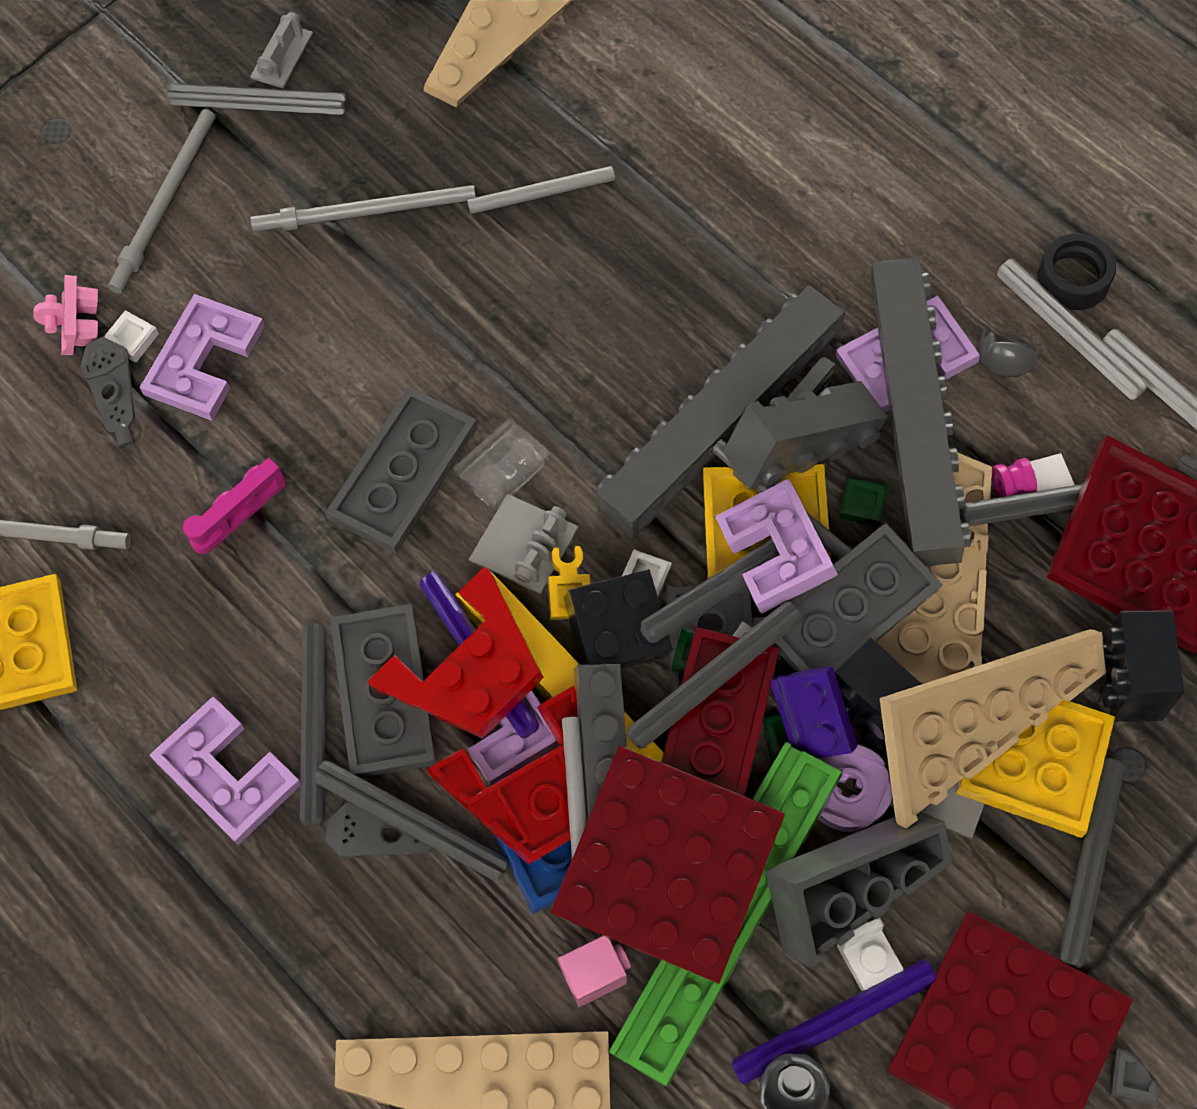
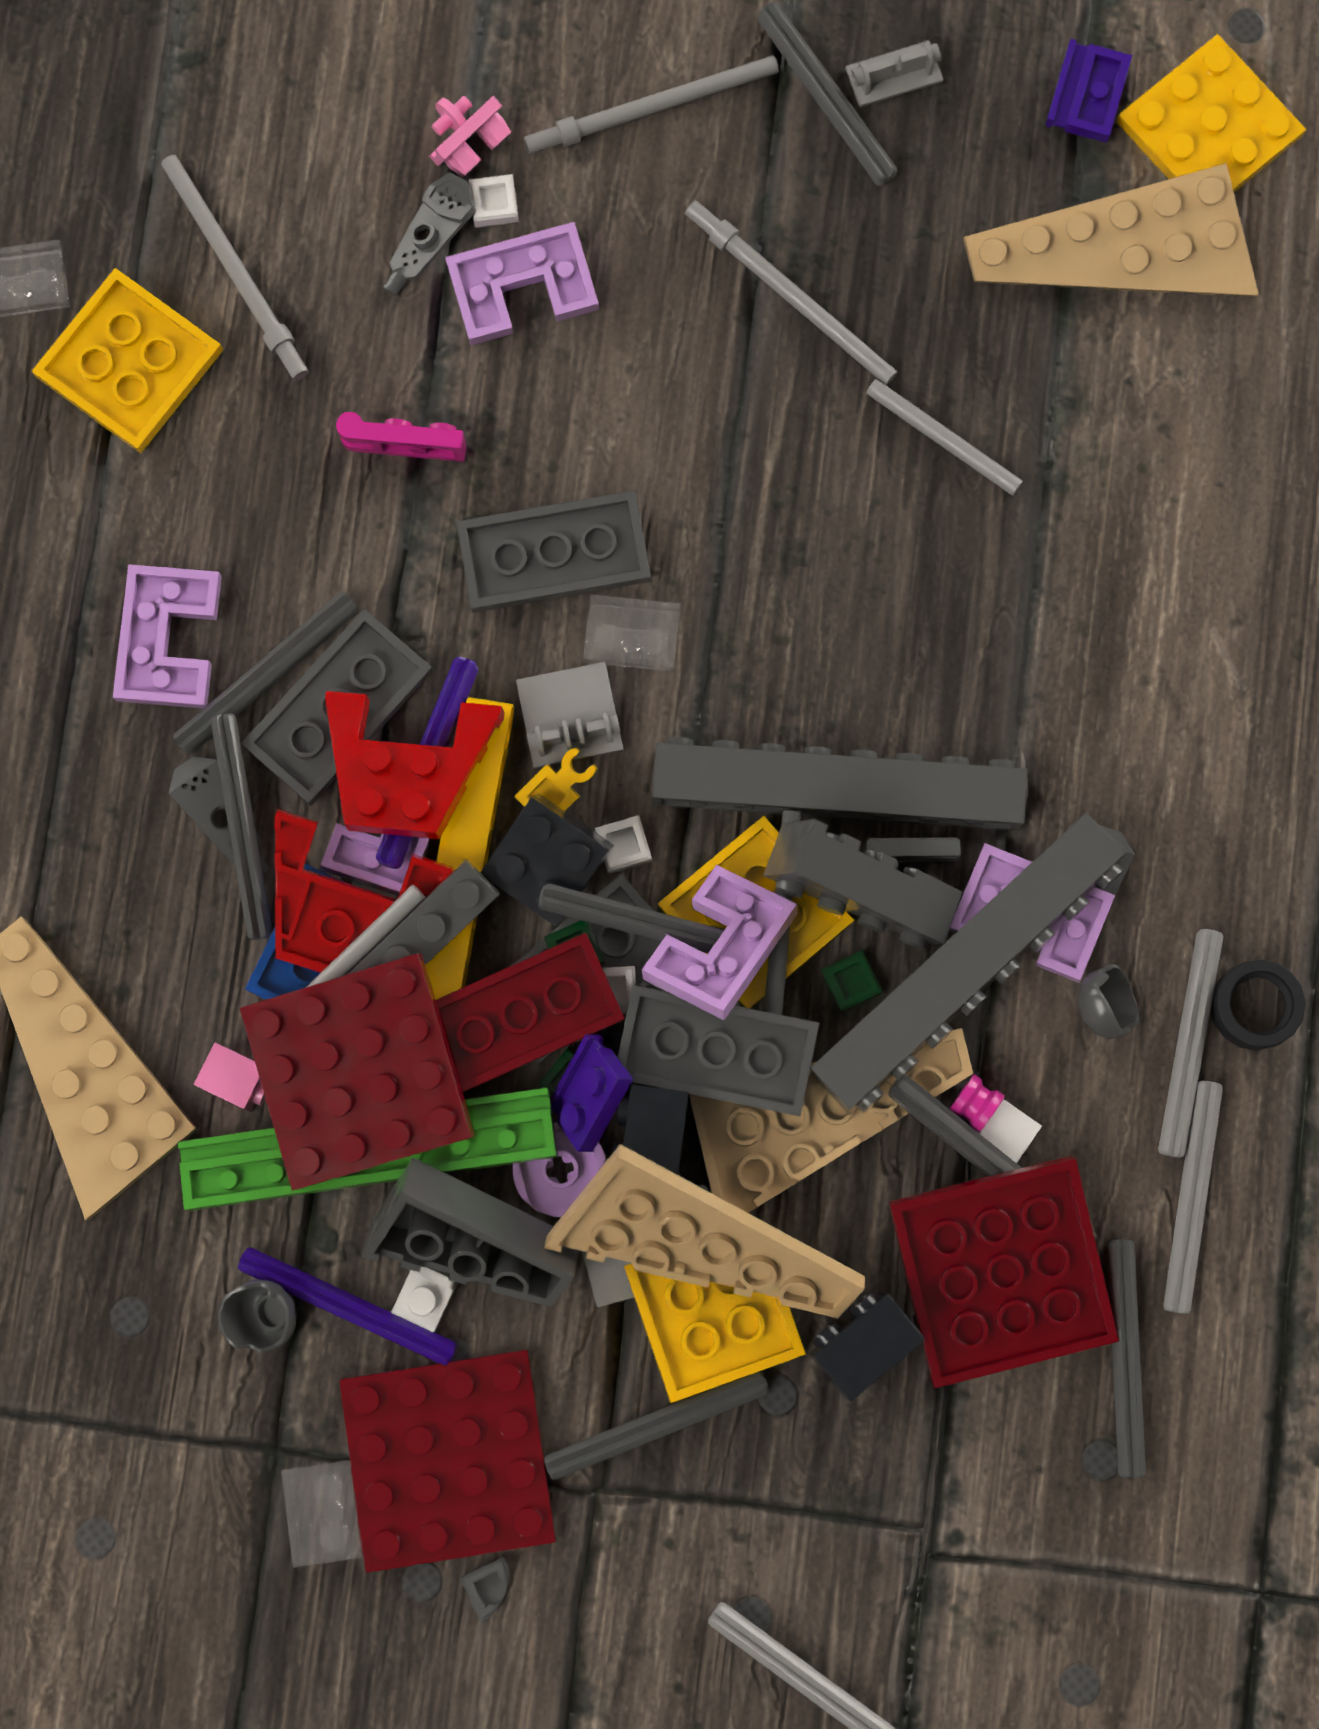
camera: 50 degrees right, 15 degrees up
(713, 675) = (550, 983): dark grey axle -> none

